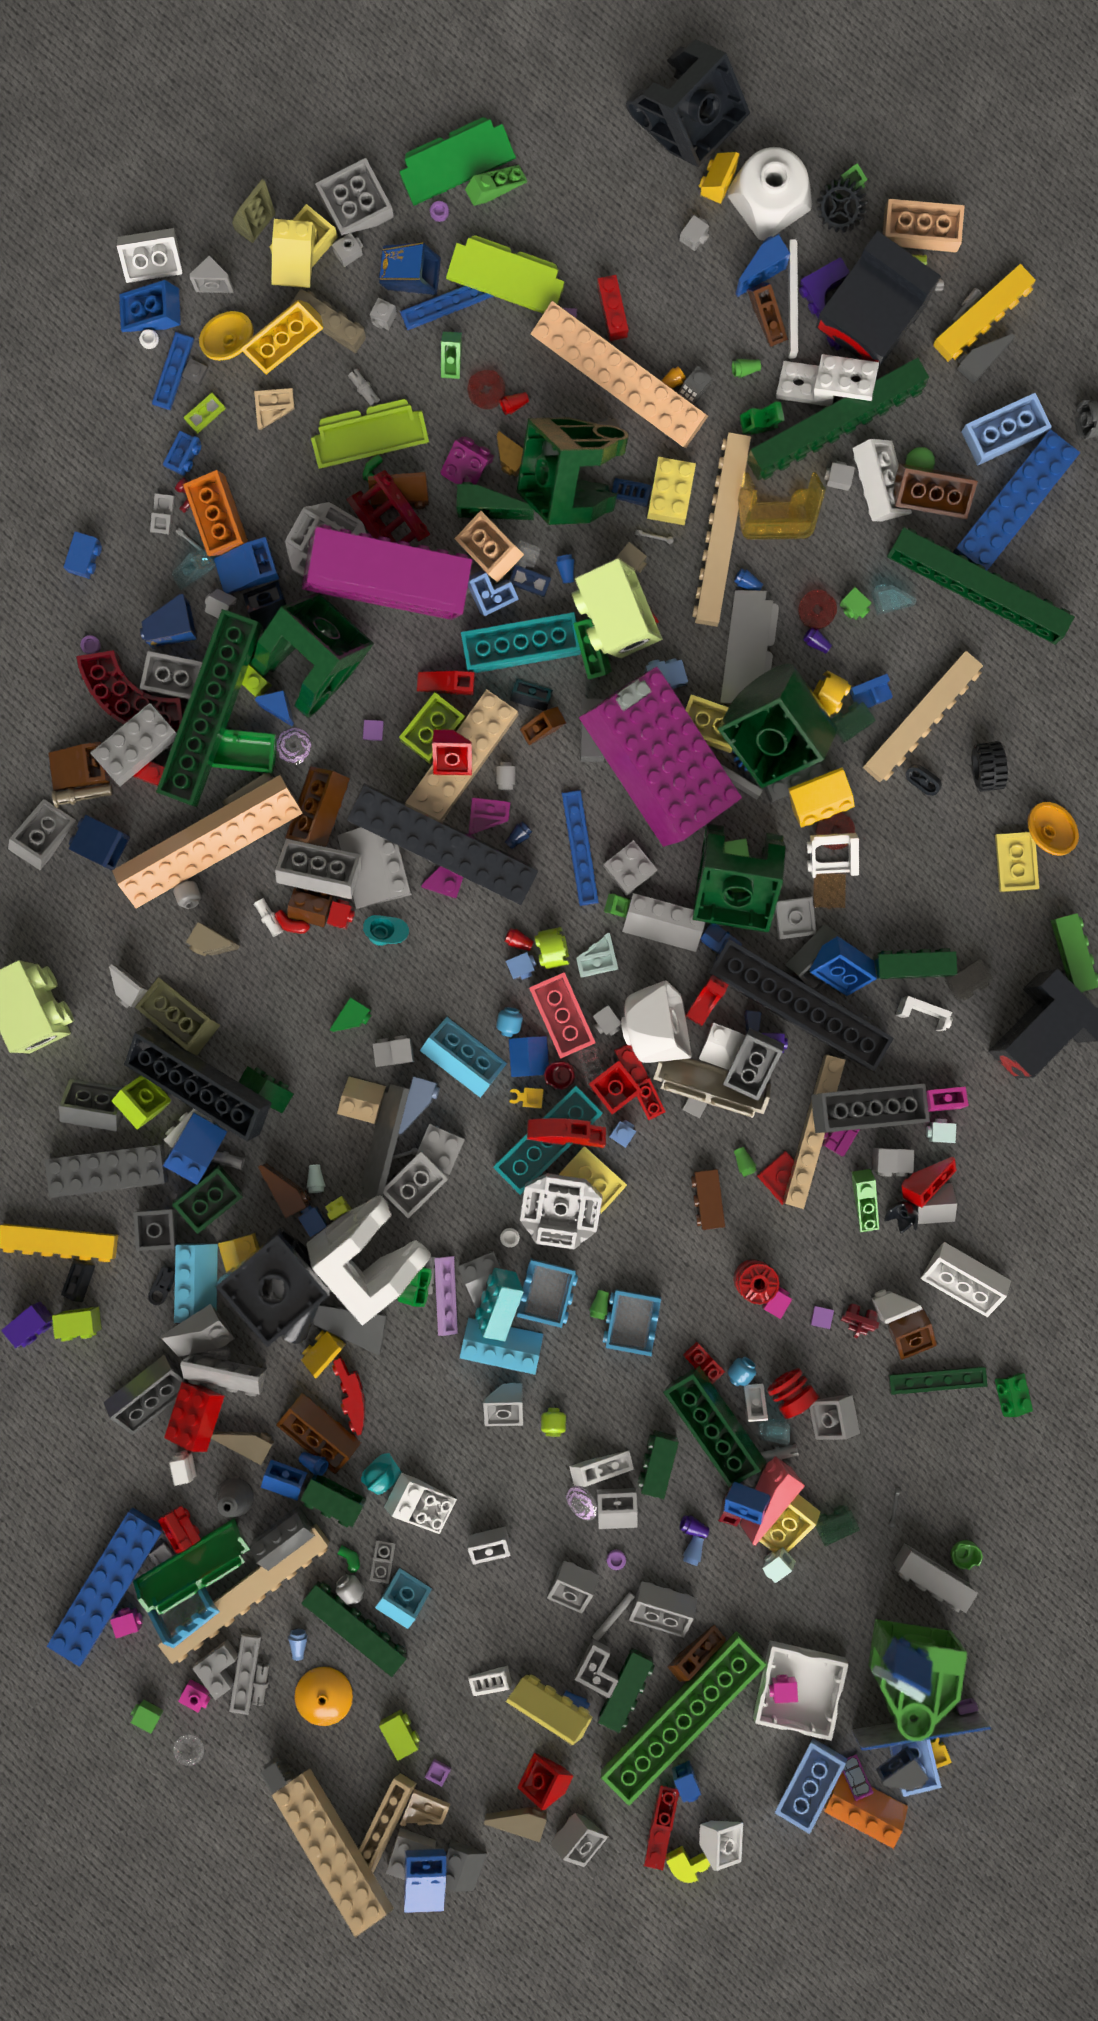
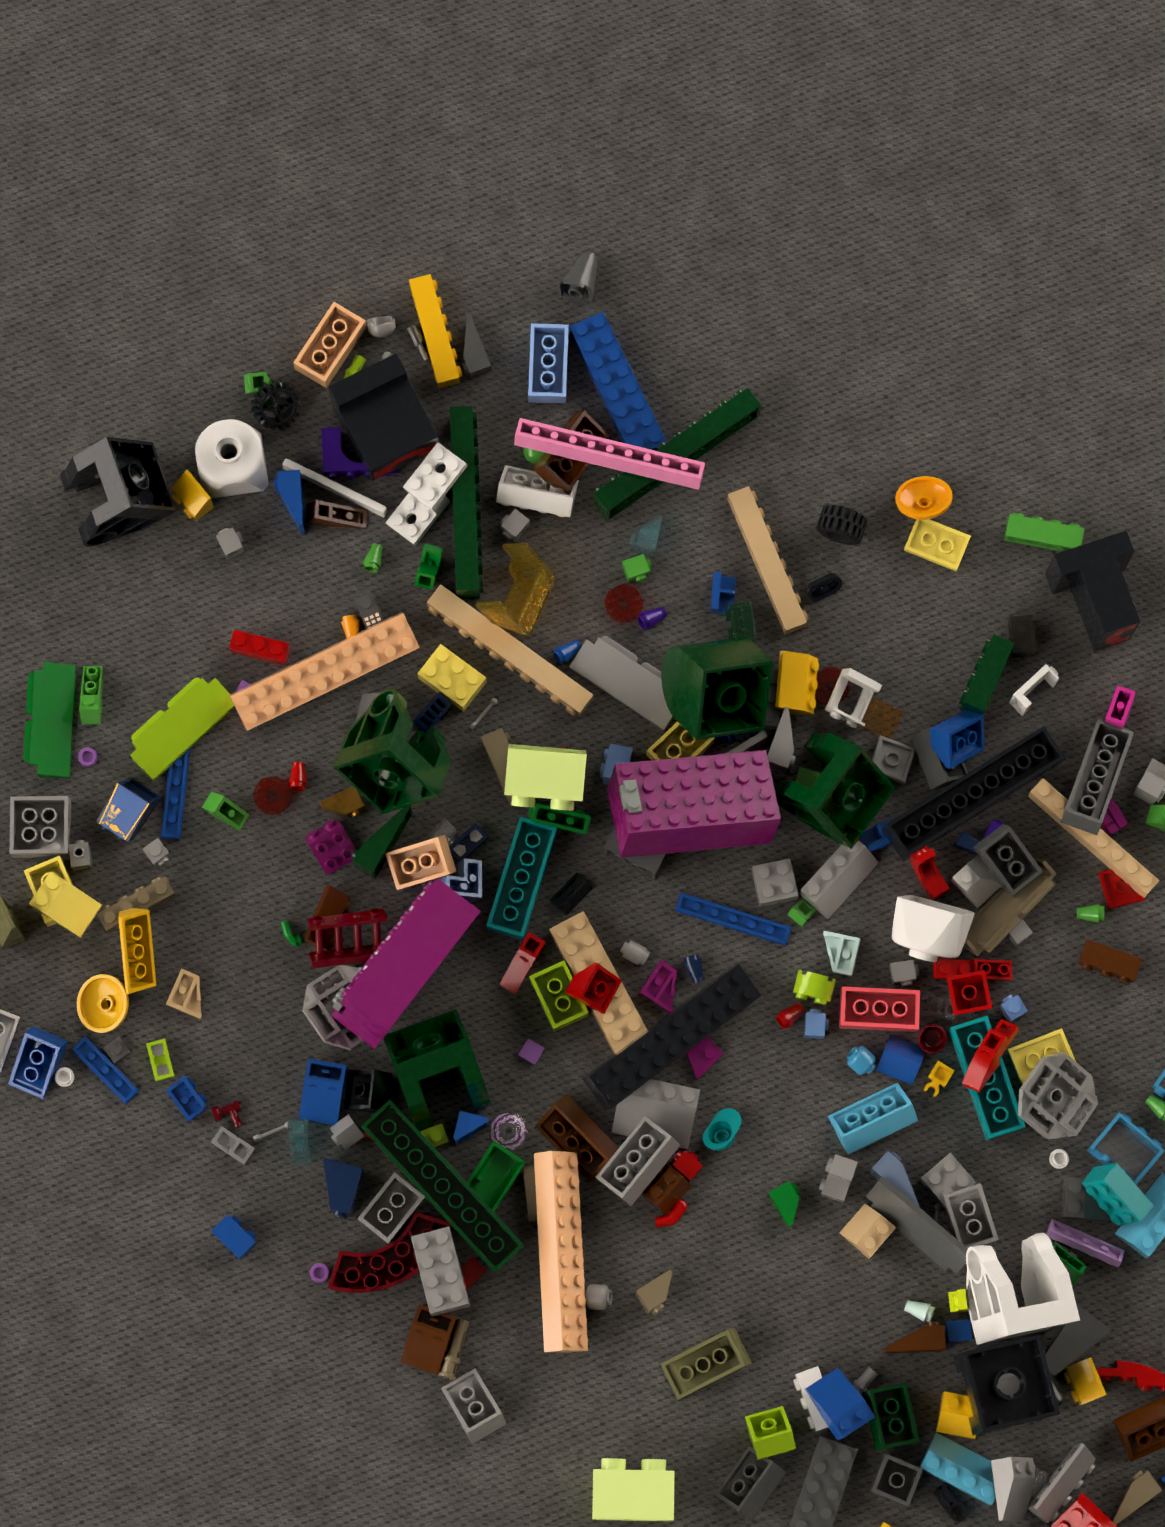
camera: 65 degrees left, 10 degrees down
(98, 842) = (508, 1355): dark blue slope -> none
(126, 987) = (657, 1395): light grey slope -> none
(197, 1083) = (781, 1369): black brick -> none
(210, 278) = (43, 988): light grey slope -> none
(215, 513) = (261, 1095): orange slope -> none
(265, 1086) = (814, 1313): dark green brick -> none
(268, 917) = (656, 1233): white pin -> none
(355, 436) = (259, 911): lime slope -> none
(364, 387) = (213, 904): light grey pin -> none
(543, 725) = (605, 896): reddish brown slope -> none
(566, 568) = (472, 805): blue cone -> none
(754, 813) = (782, 748): none -> light grey slope
(831, 692) = (705, 627): yellow brick -> none
(941, 1131) = (1147, 726): light aqua brick -> none
(946, 520) = (609, 453): none -> bright pink brick
(963, 263) = (381, 326): none -> light grey hair

